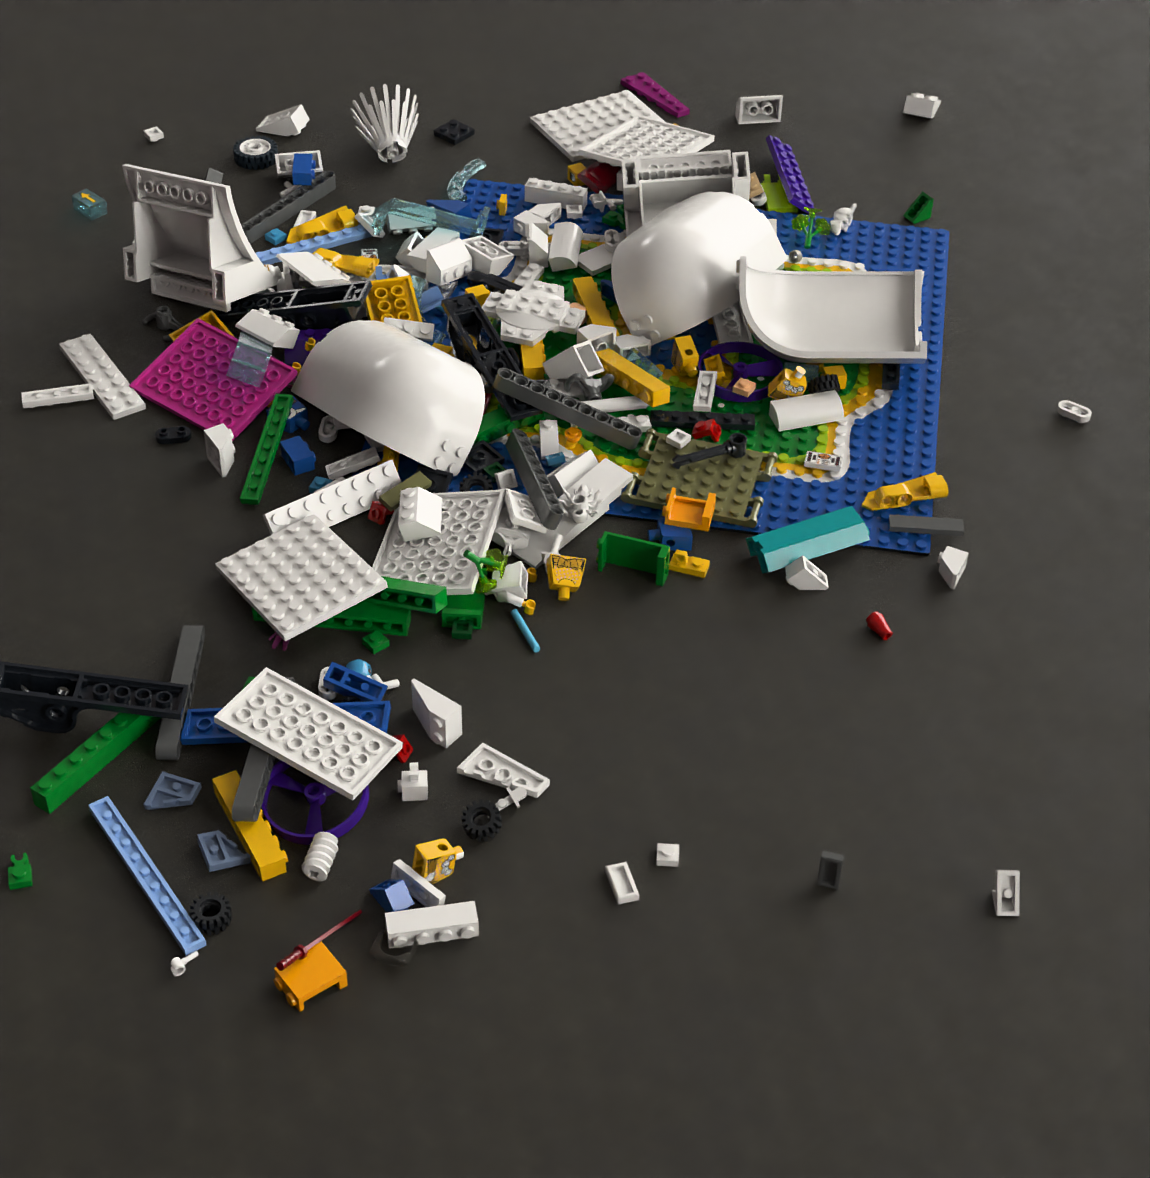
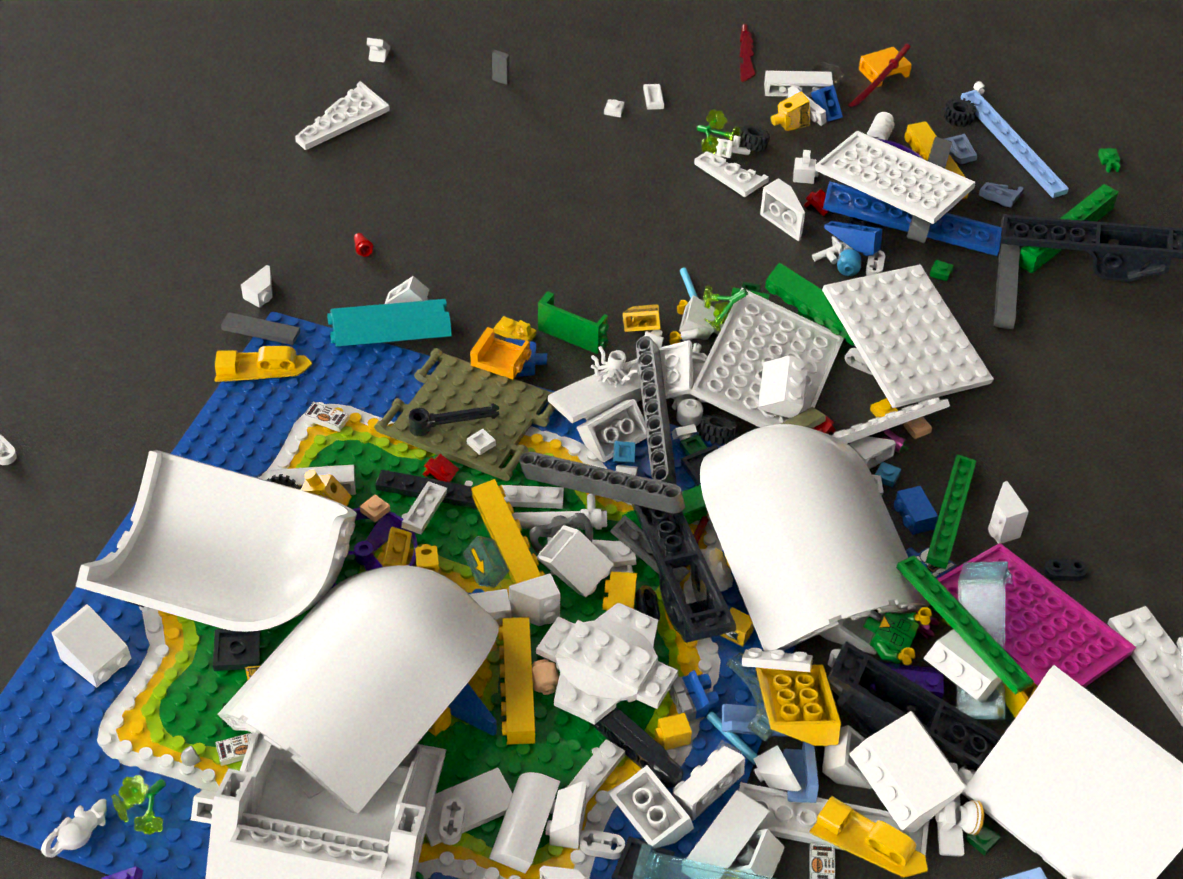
camera: 170 degrees left, 5 degrees up
(270, 337) = (965, 625): none -> green tile
(510, 985) = (746, 52): none -> dark red sword
(529, 803) = (716, 120): none -> clear neon green plant
(988, 787) = (343, 115): none -> white wing

